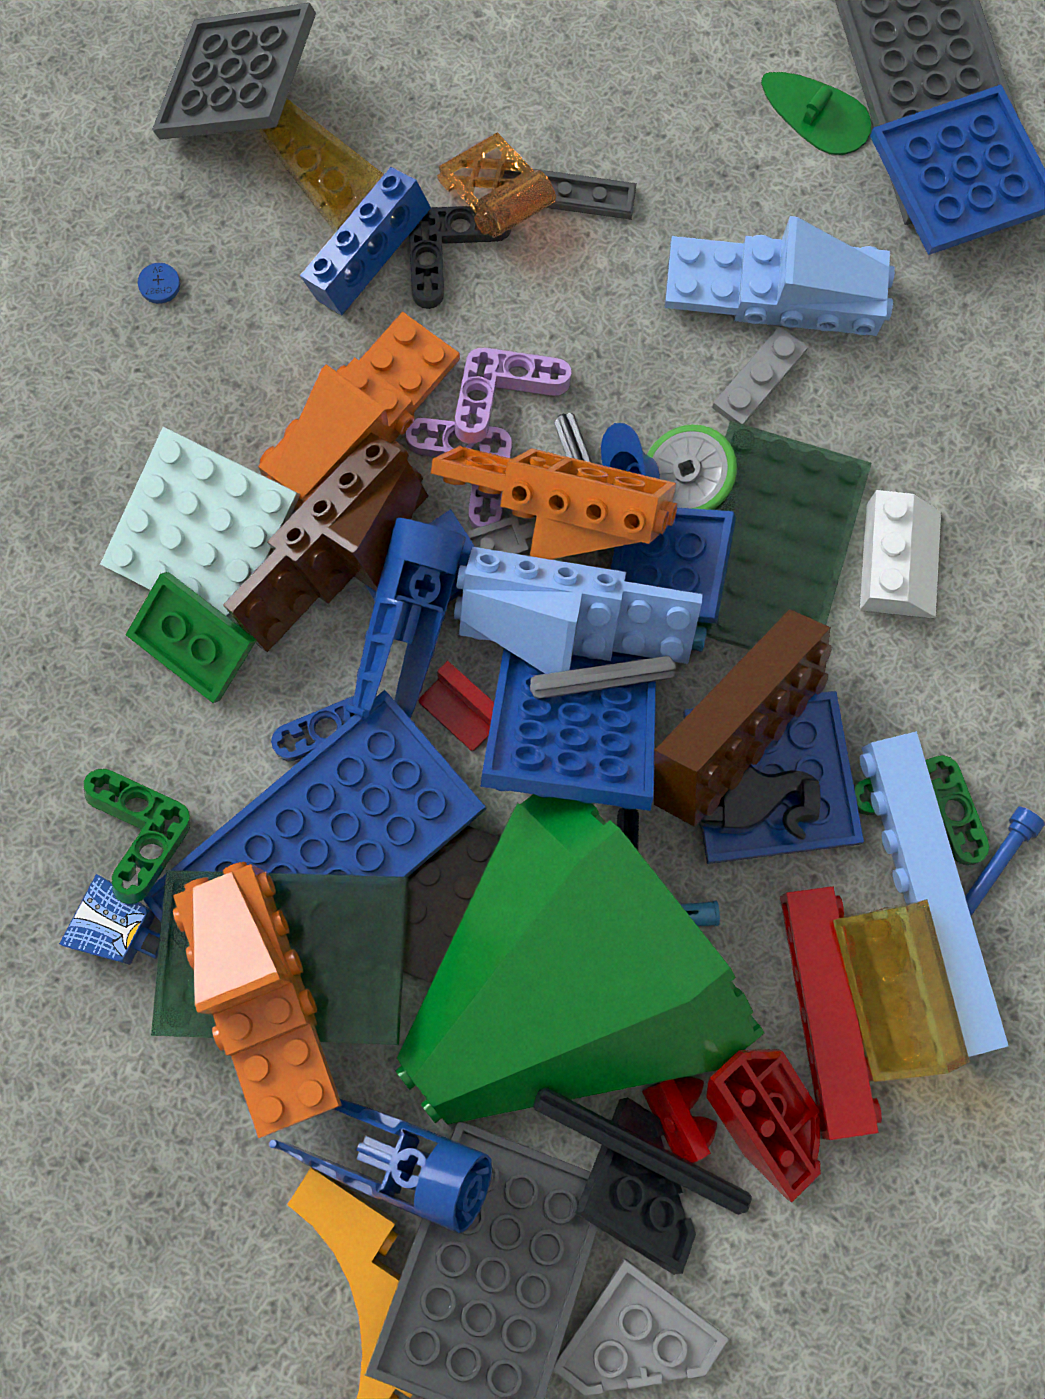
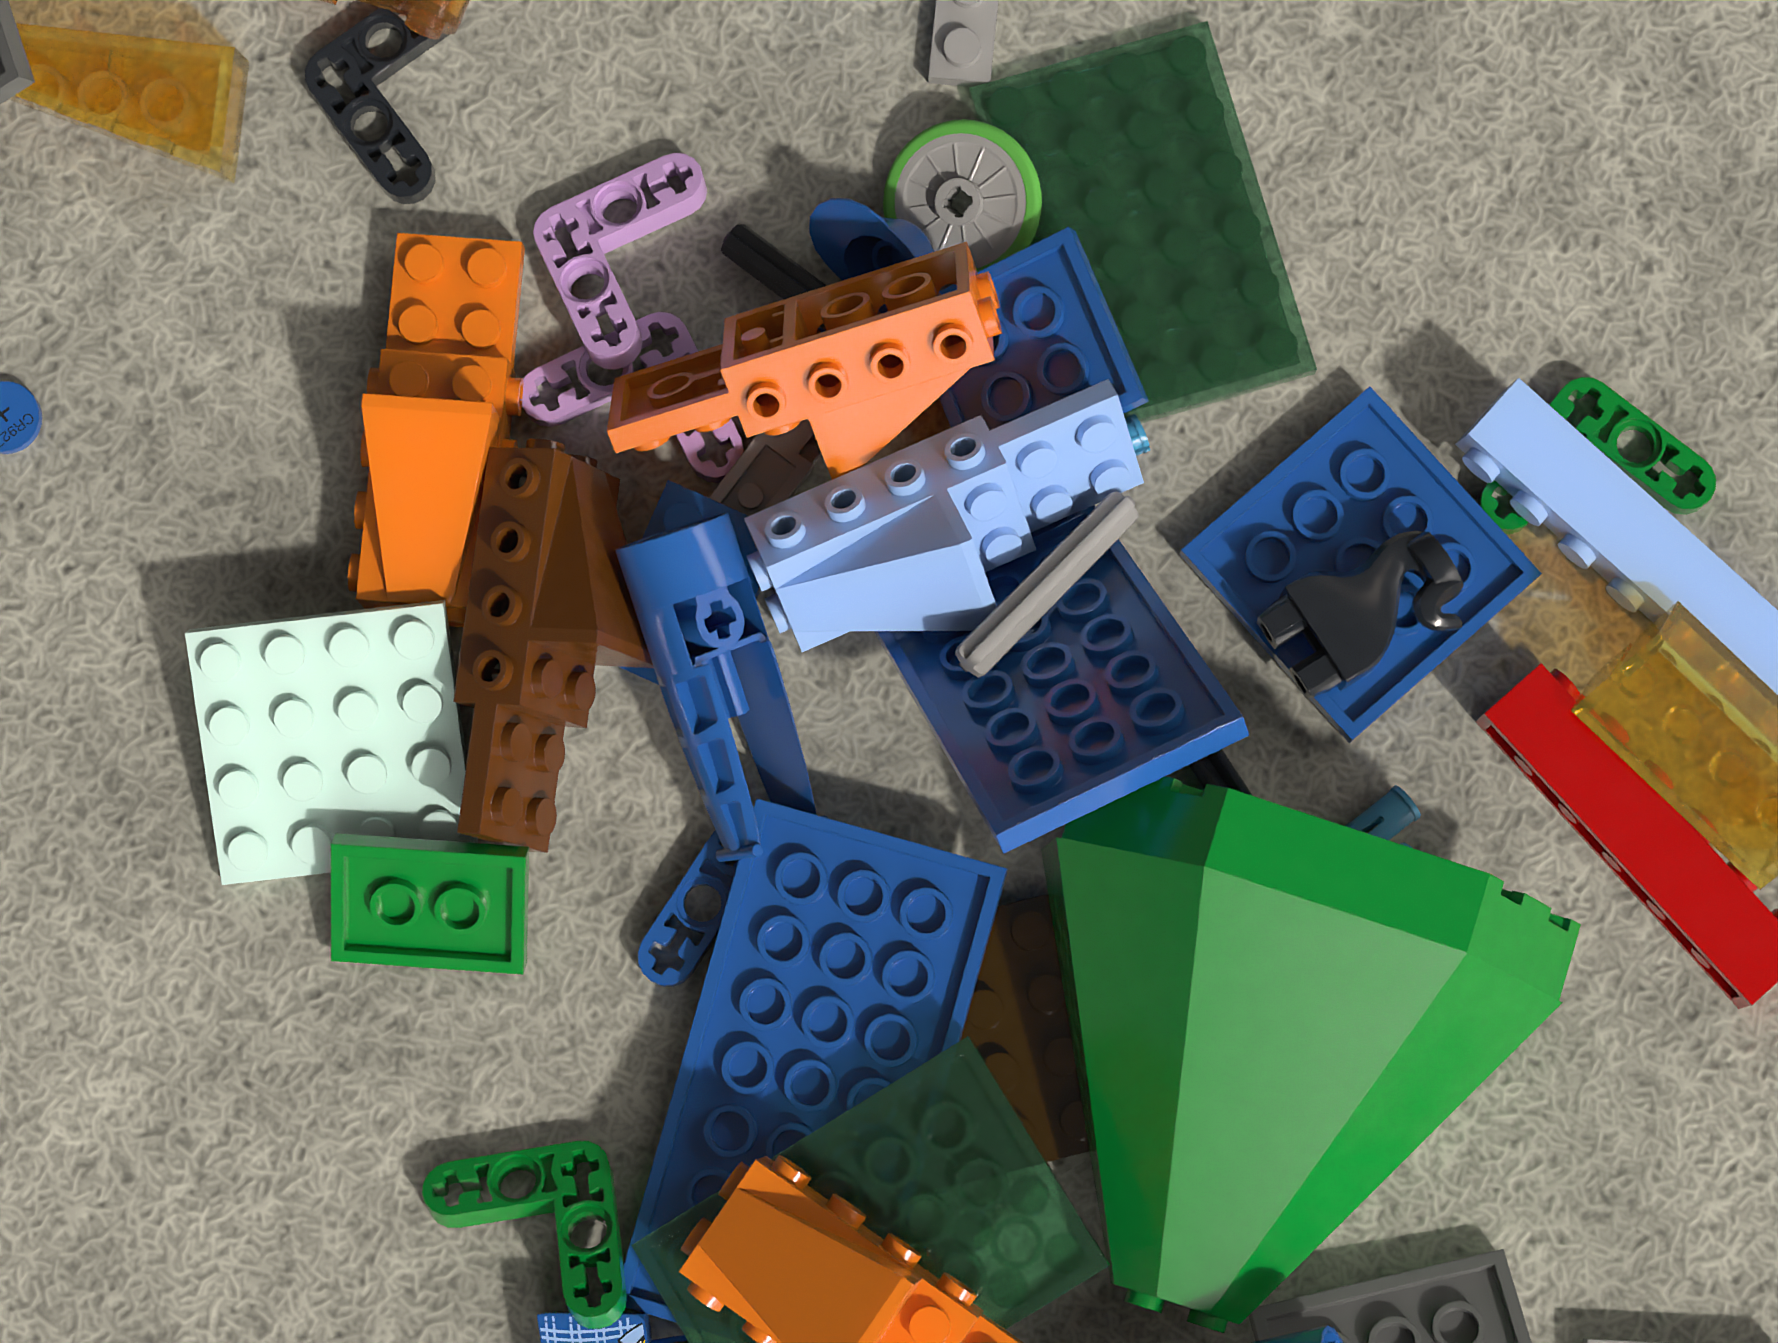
camera: 25 degrees left, 5 degrees up
(366, 240) = (272, 161): blue brick -> none
(459, 706) = (870, 750): red panel -> none
(635, 1201) = (1543, 1240): black plate -> none
(642, 1151) = (1518, 1185): black axle -> none
(685, 1134) = (1557, 1124): red tile -> none
(741, 718) = (1276, 515): reddish brown brick -> none
(769, 1117) = (1656, 1029): red wedge -> none
(900, 555) = (1333, 131): white slope -> none
(1022, 827) = (1739, 411): blue piece -> none

